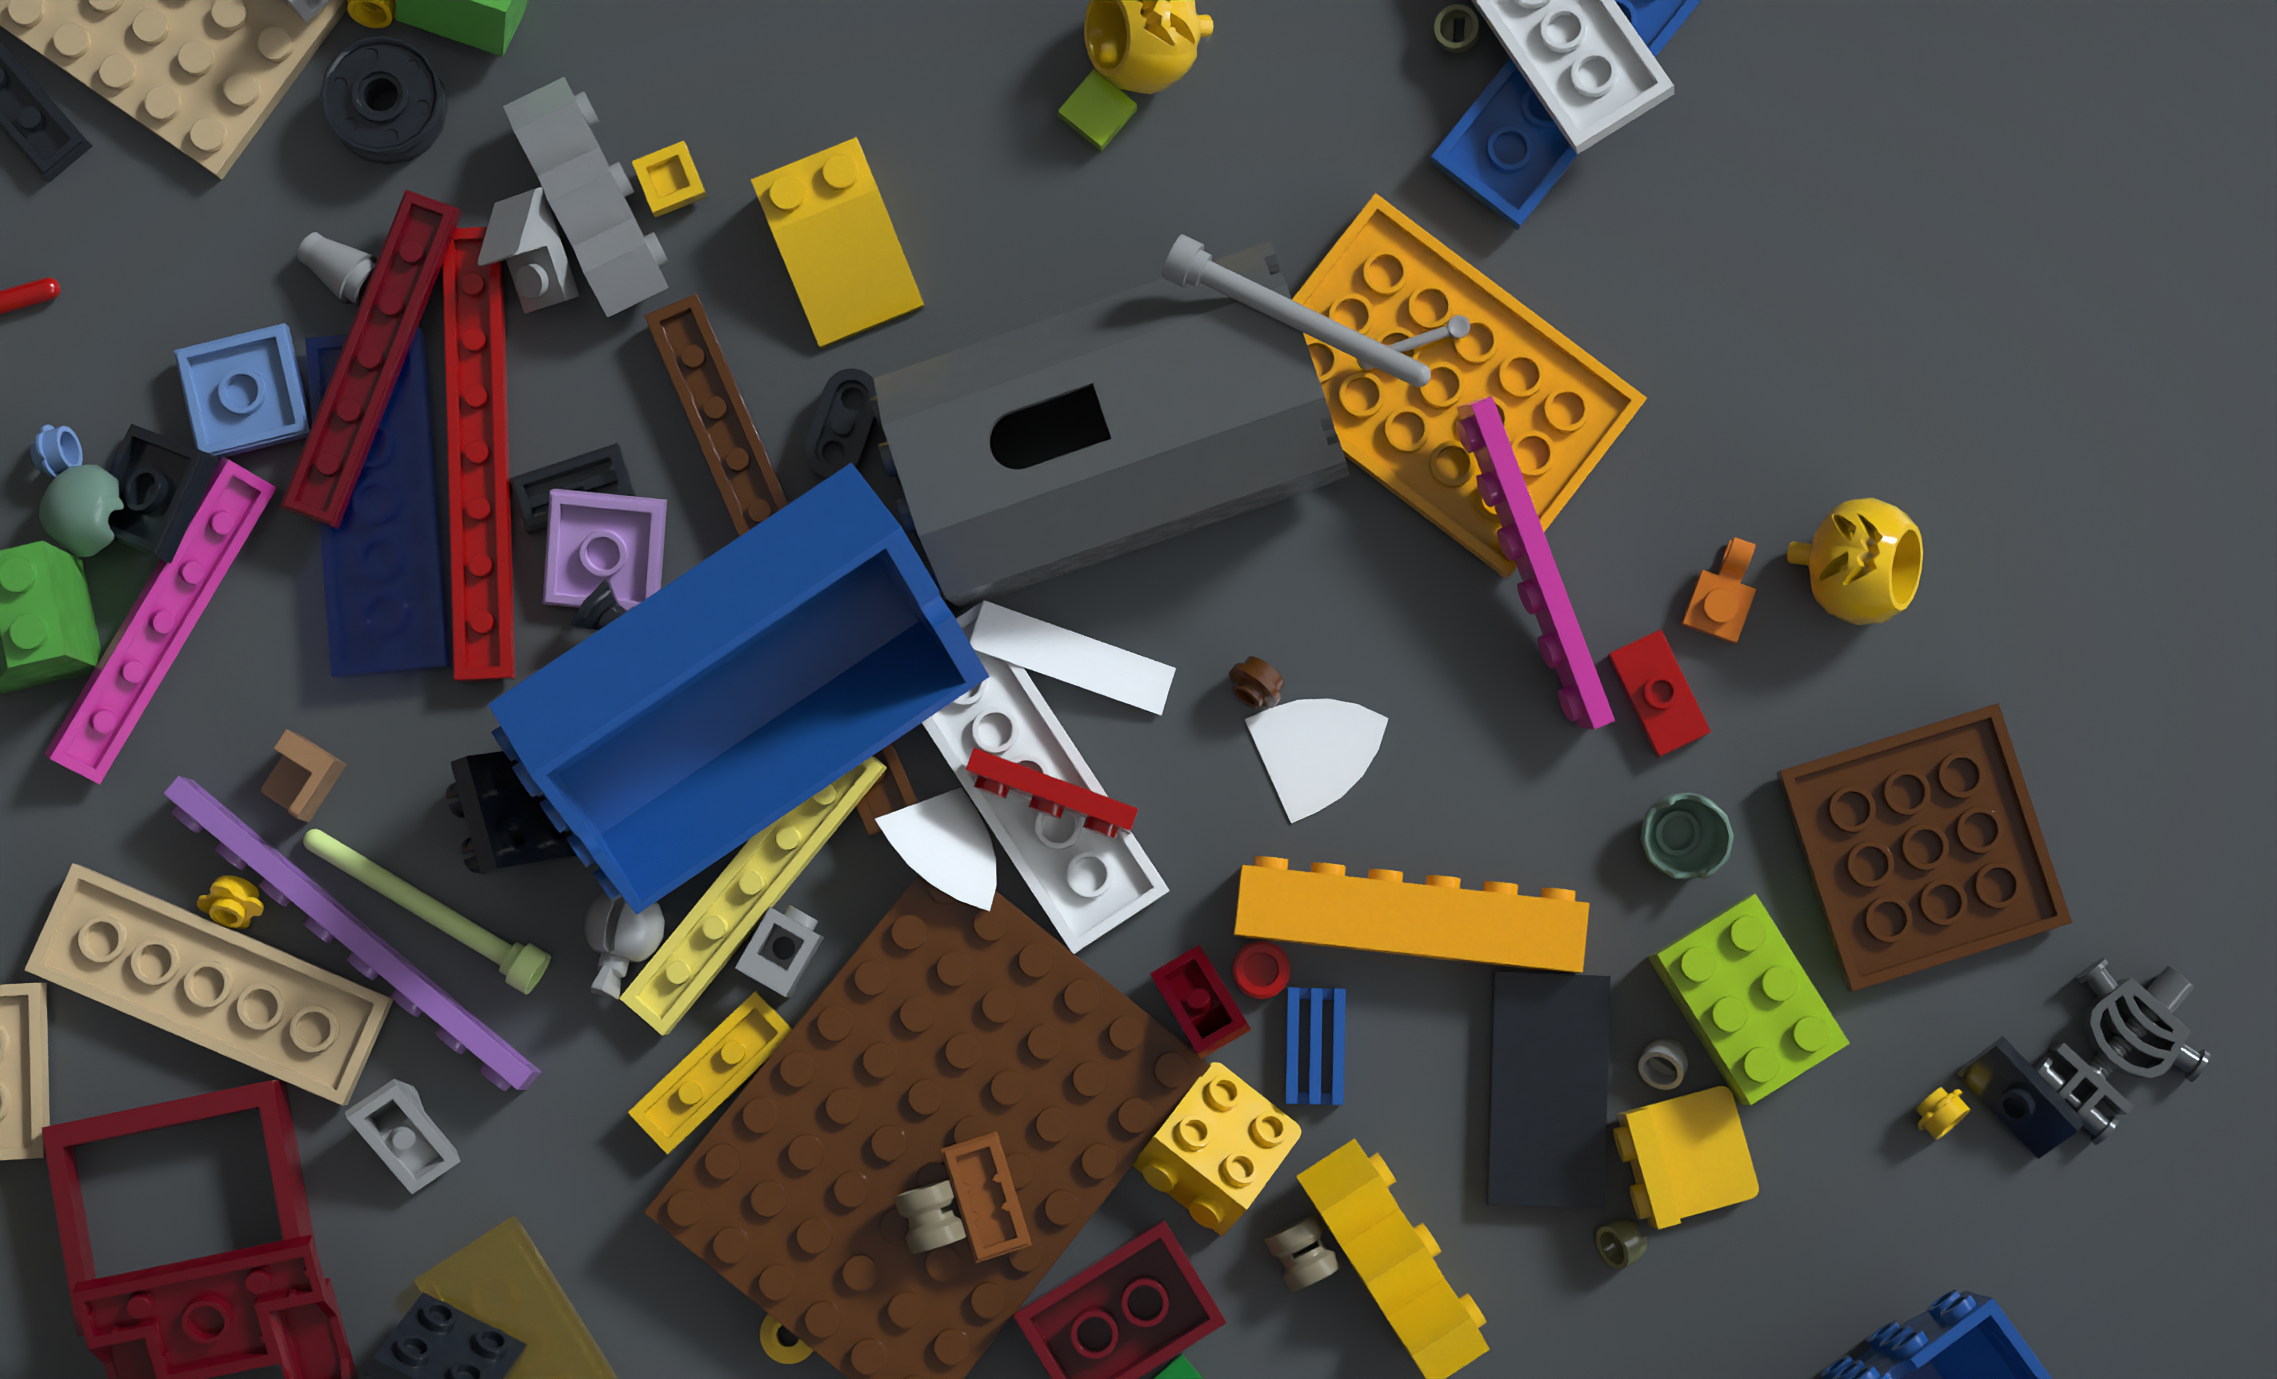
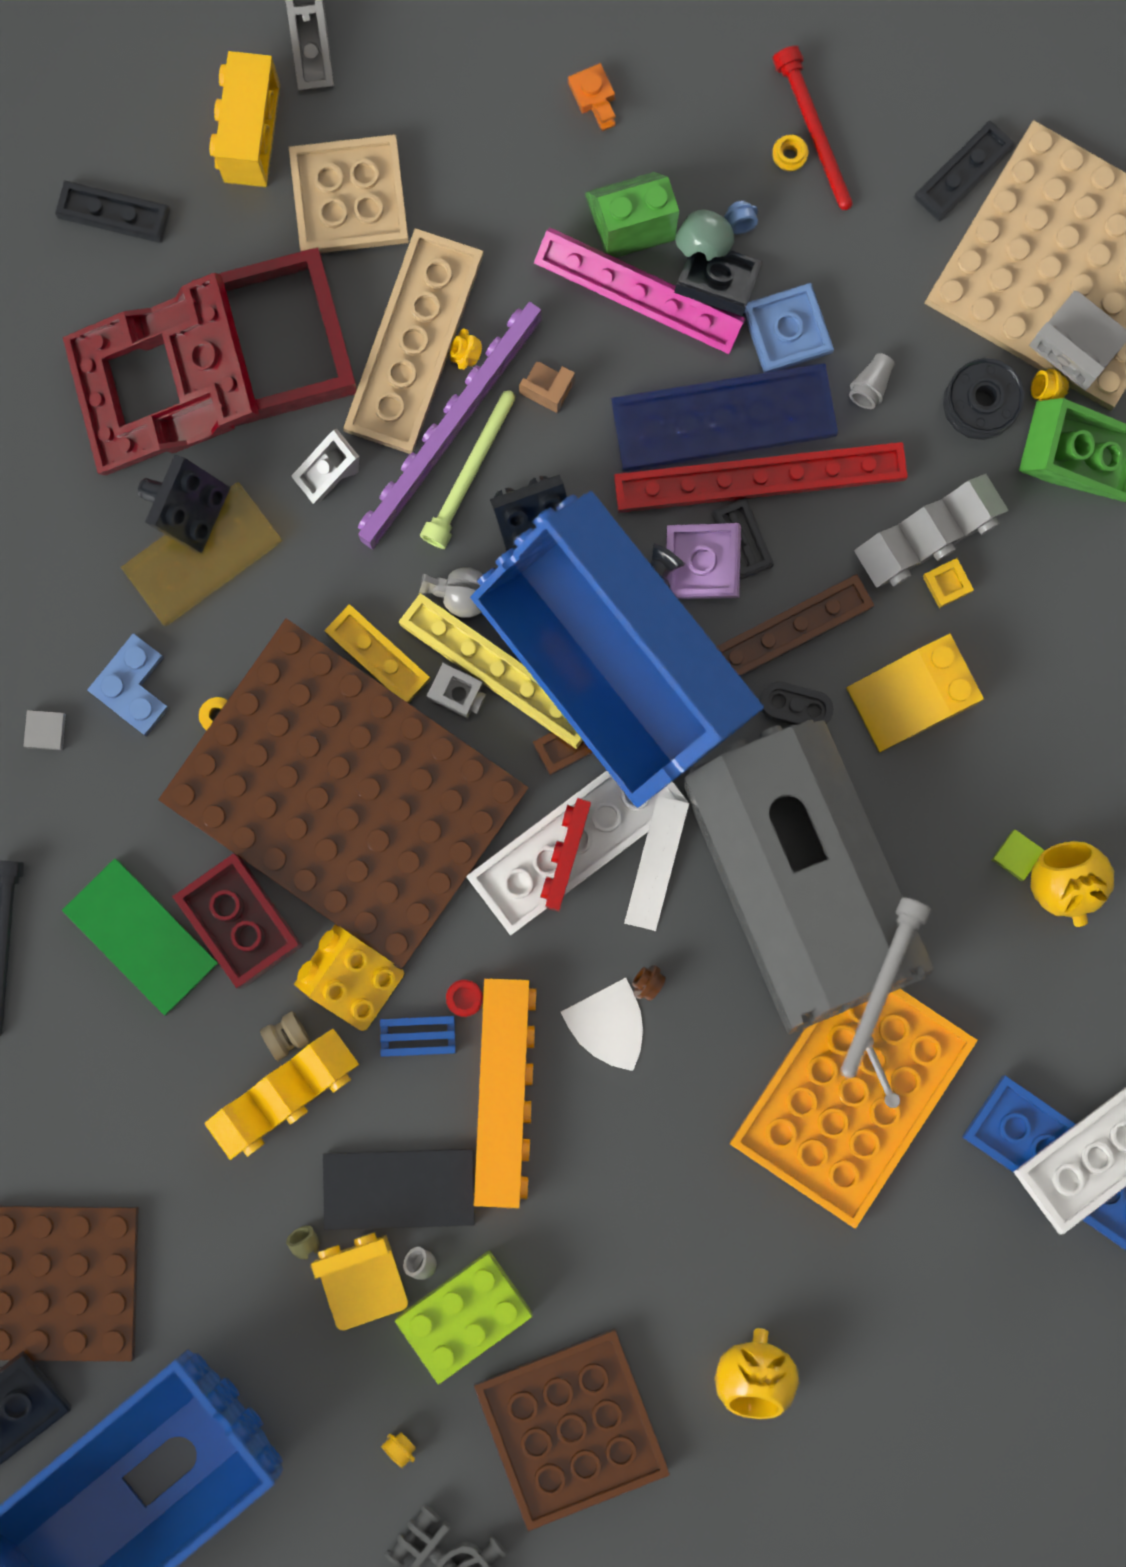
camera: 85 degrees right, 0 degrees up
(371, 359) = (815, 405): dark red tile -> none
(529, 241) = (901, 495): light grey slope -> none
(929, 1217) = (292, 795): dark tan wheel -> none
(946, 846) = (528, 790): white sticker -> none
(986, 1197) = (307, 830): dark orange plate -> none
(1200, 1002) = (439, 959): dark red slope -> none
(1446, 28) = (1092, 1081): olive hinge -> none
(1541, 583) = (751, 1151): dark pink plate -> none
(1659, 693) = (661, 1248): red plate -> none
(1686, 836) = (567, 1270): sand green hair -> none
(1720, 600) = (724, 1285): orange plate -> none
(2021, 1097) = (411, 1502): black plate -> none

